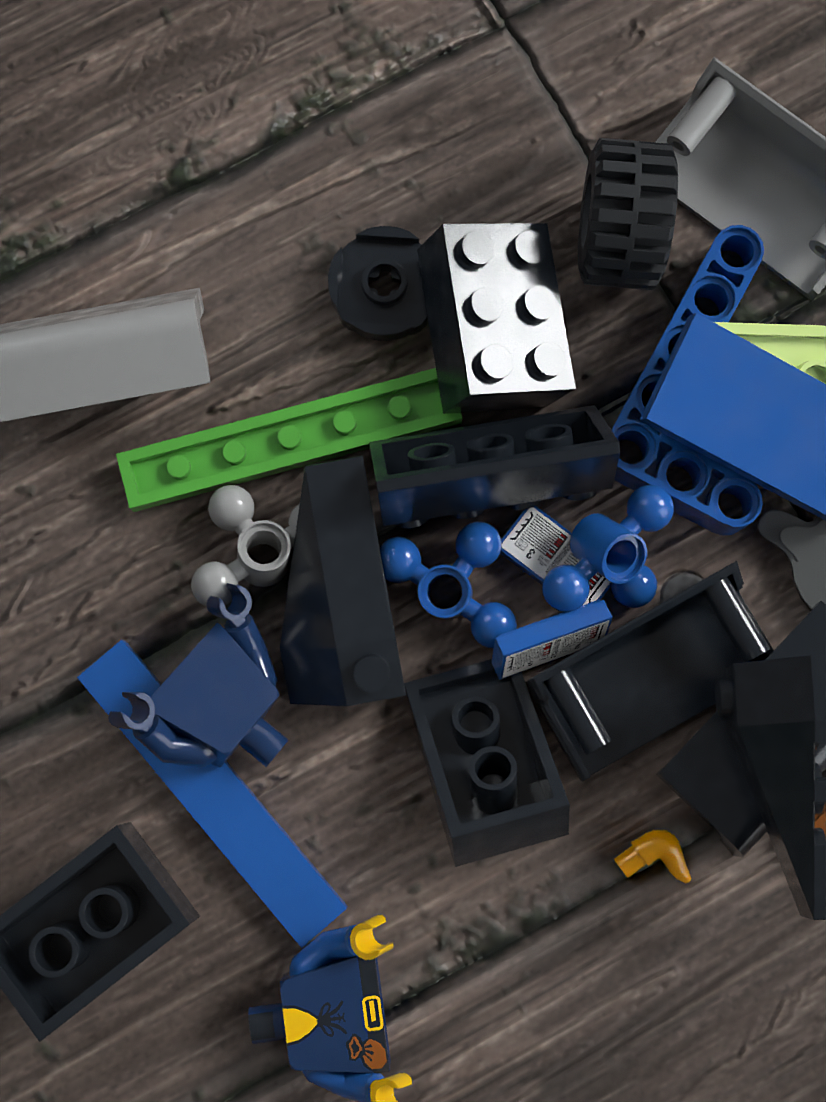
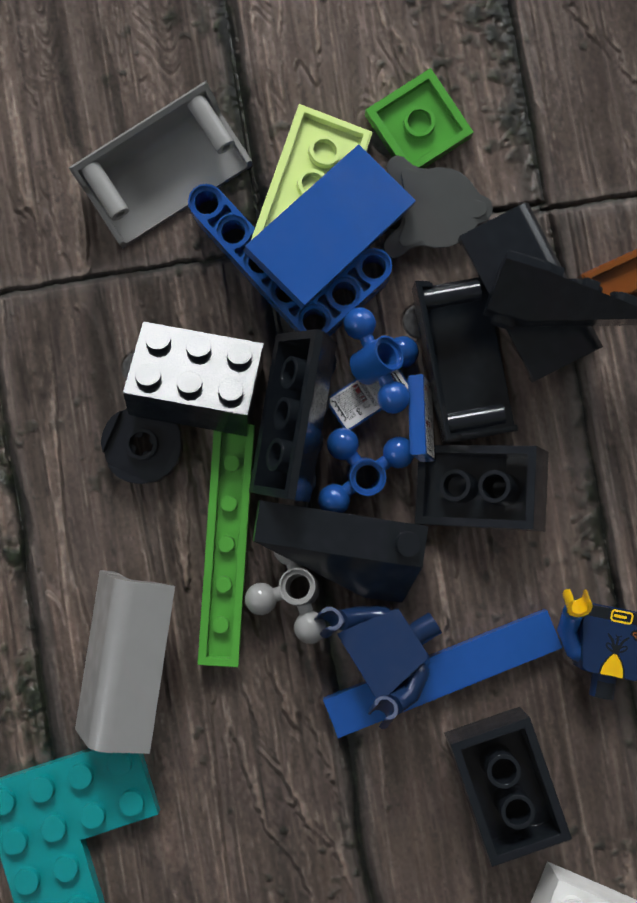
camera: 70 degrees left, 5 degrees up
(627, 213) = (156, 265): black tyre -> none
(649, 848) = (573, 403): light orange animal -> none

